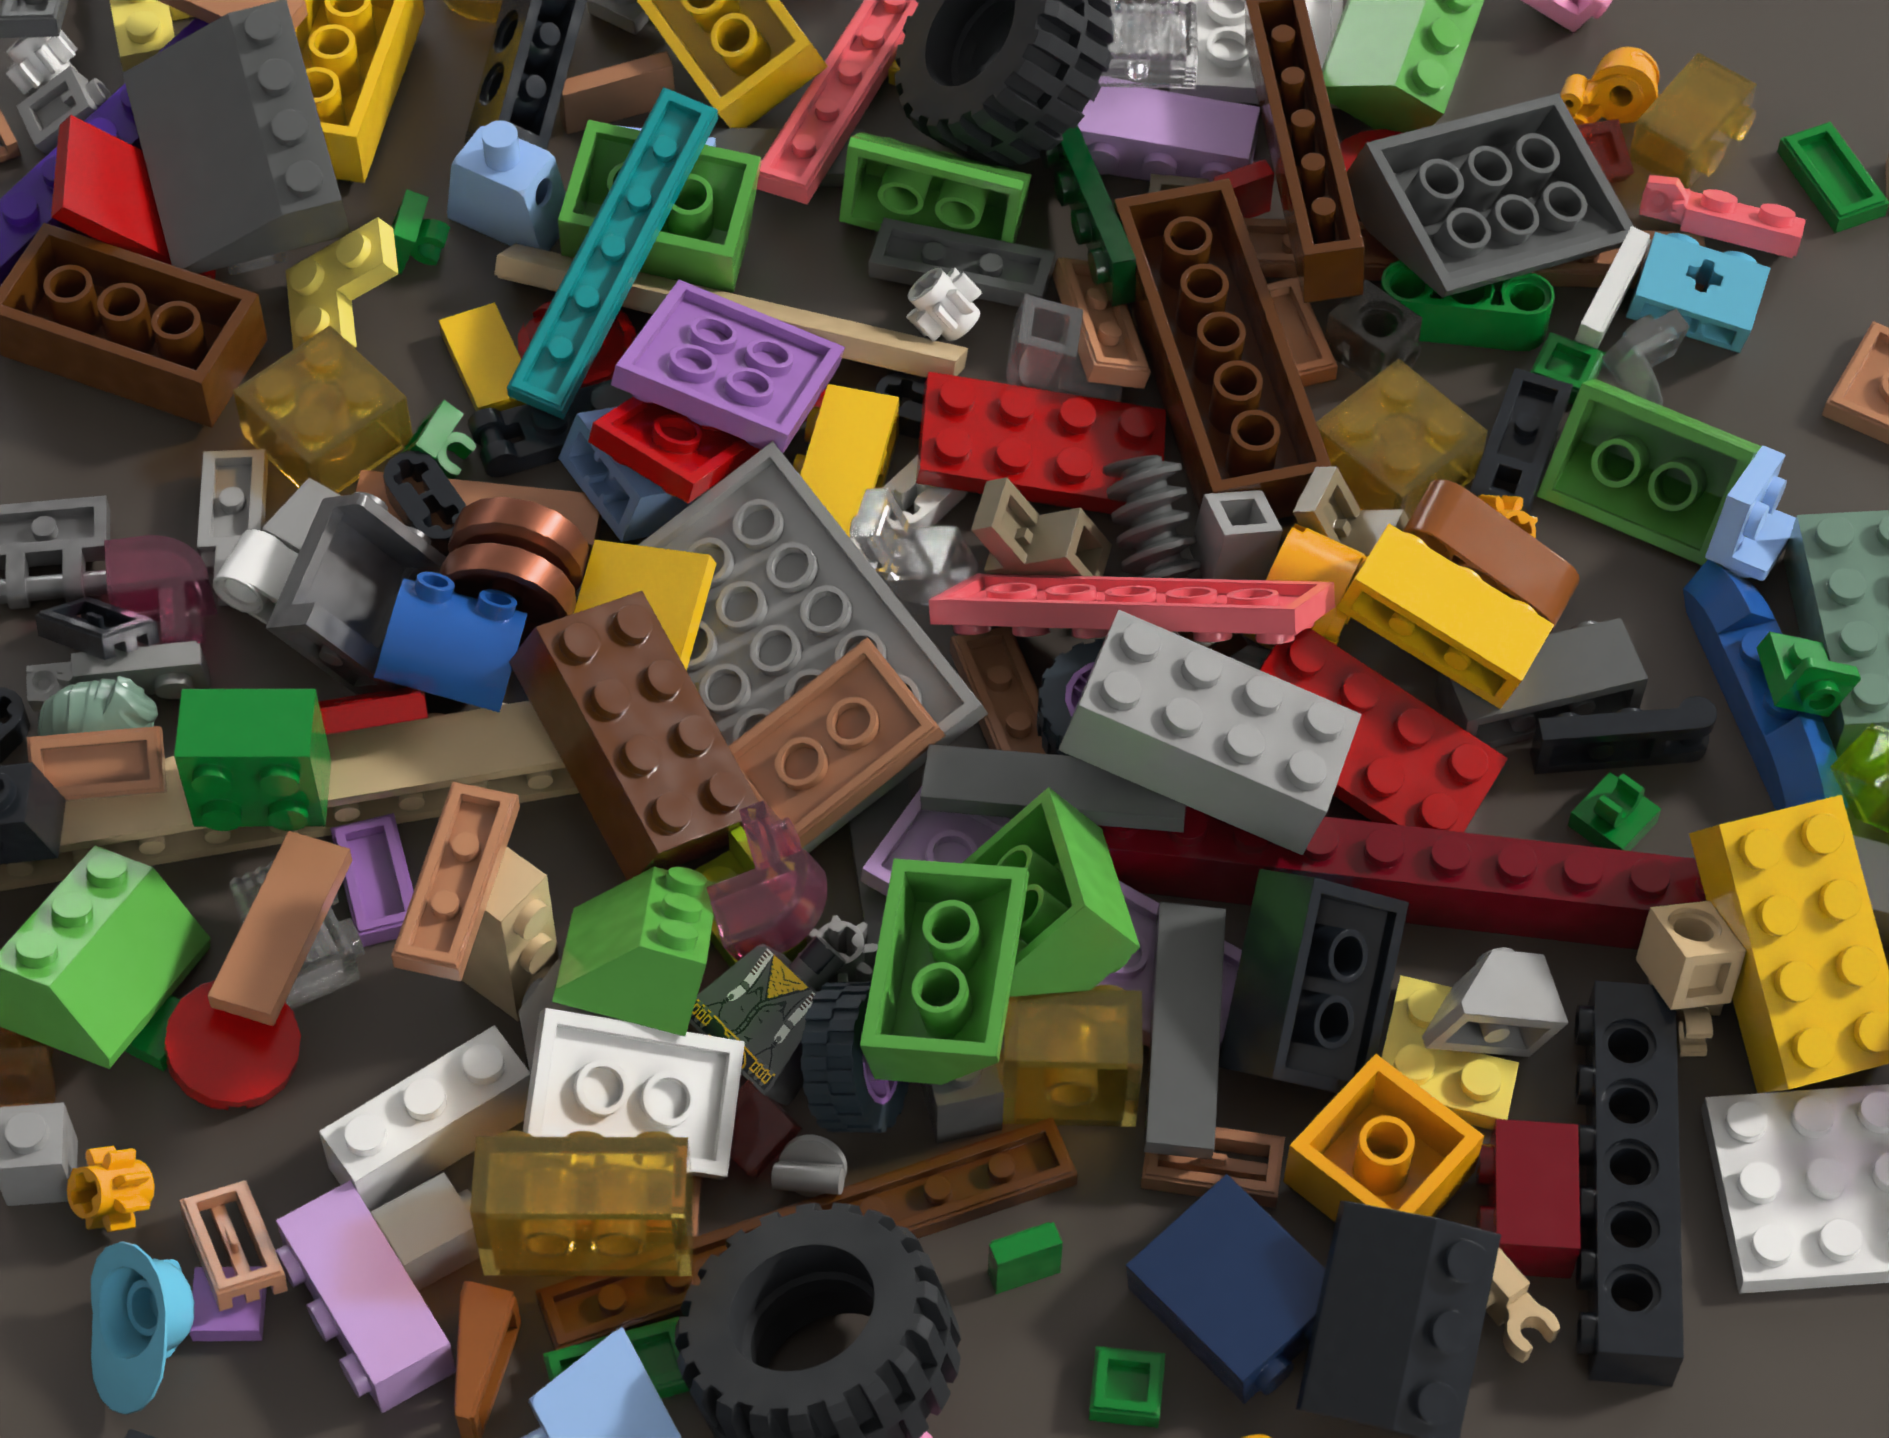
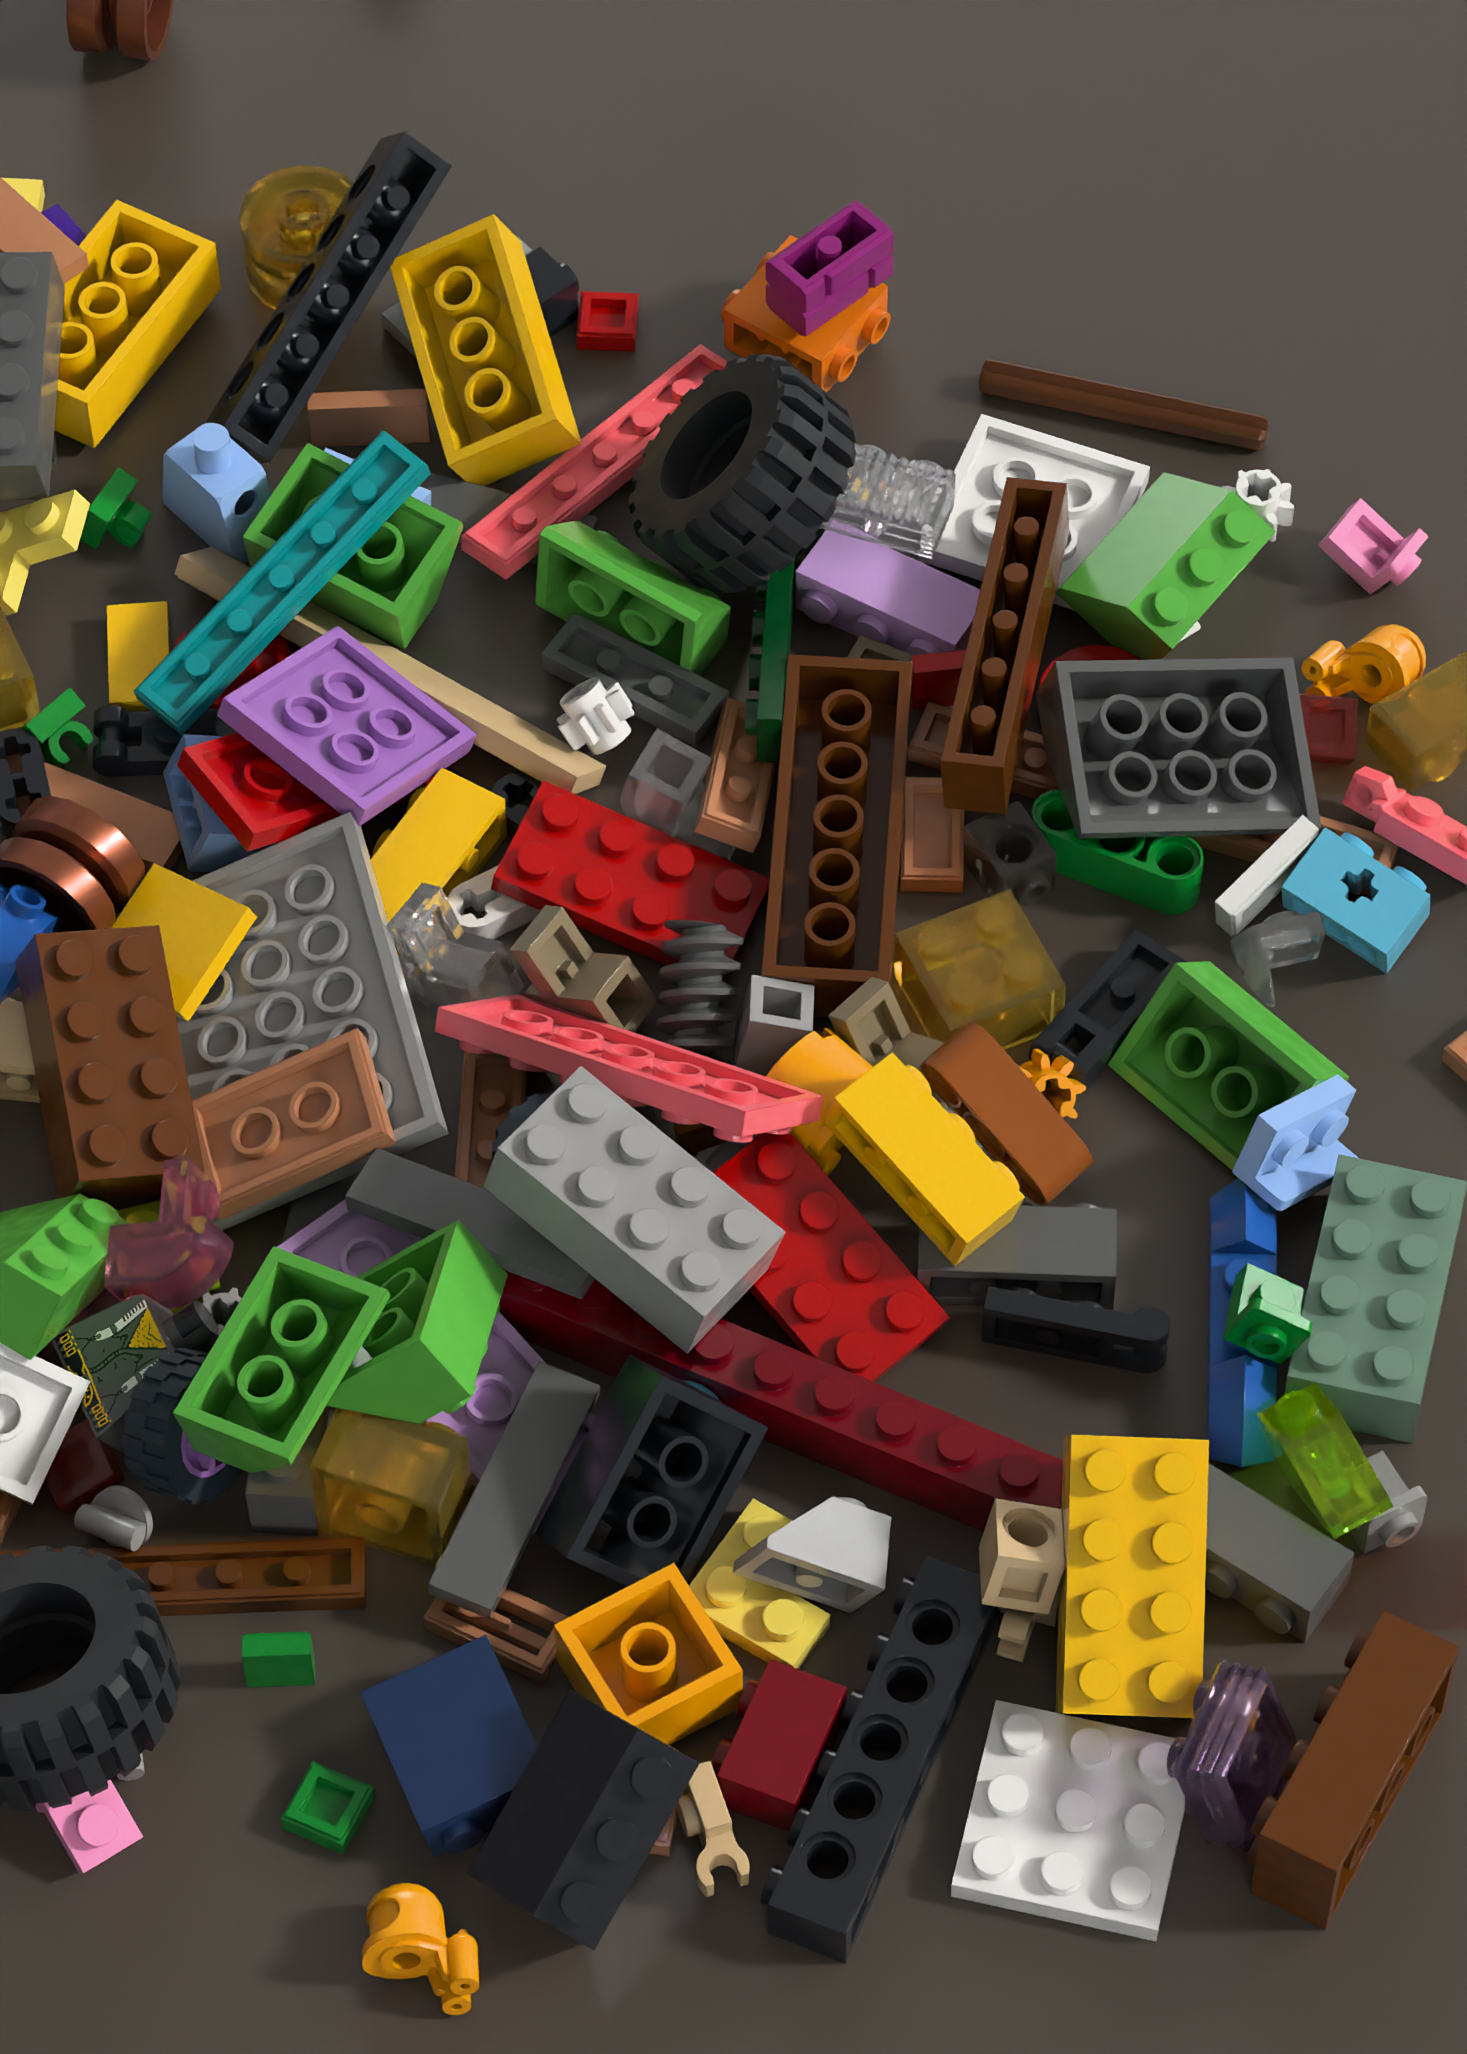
camera: 20 degrees right, 0 degrees up
(1568, 362) = (1198, 937): green tile -> none
(1614, 814) = (1037, 1404): green tile -> none

